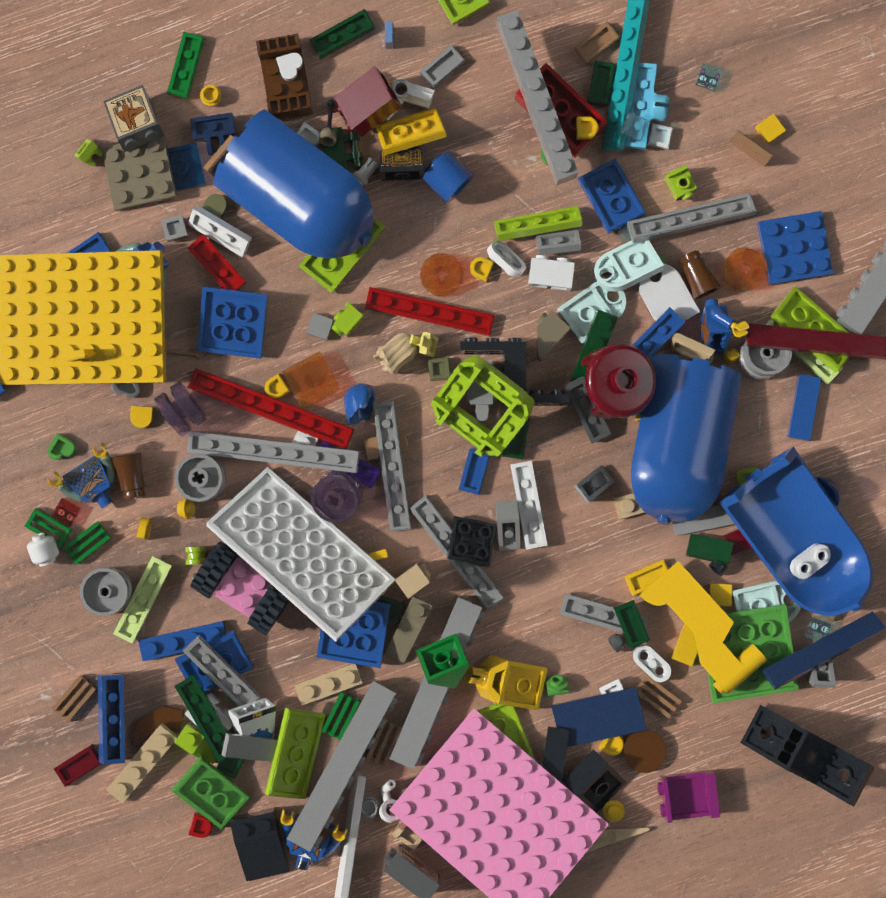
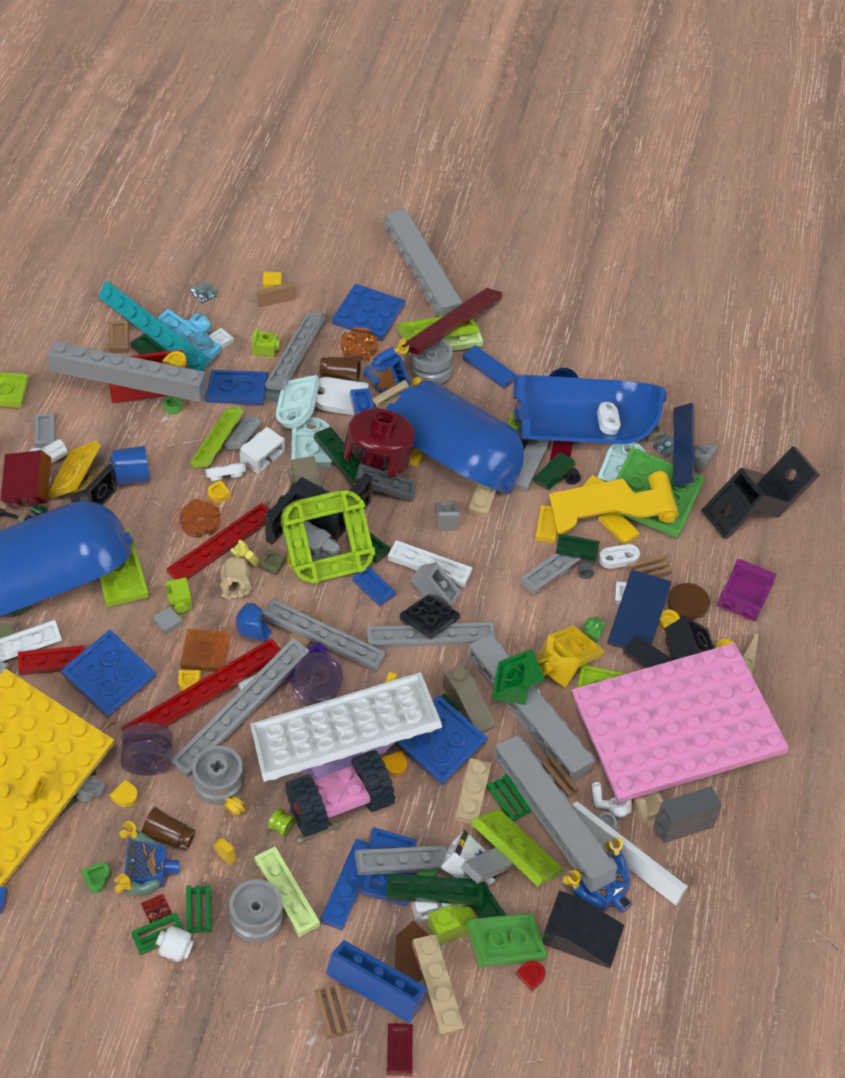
camera: 60 degrees left, 35 degrees down
(414, 579) = (431, 651): tan brick -> none

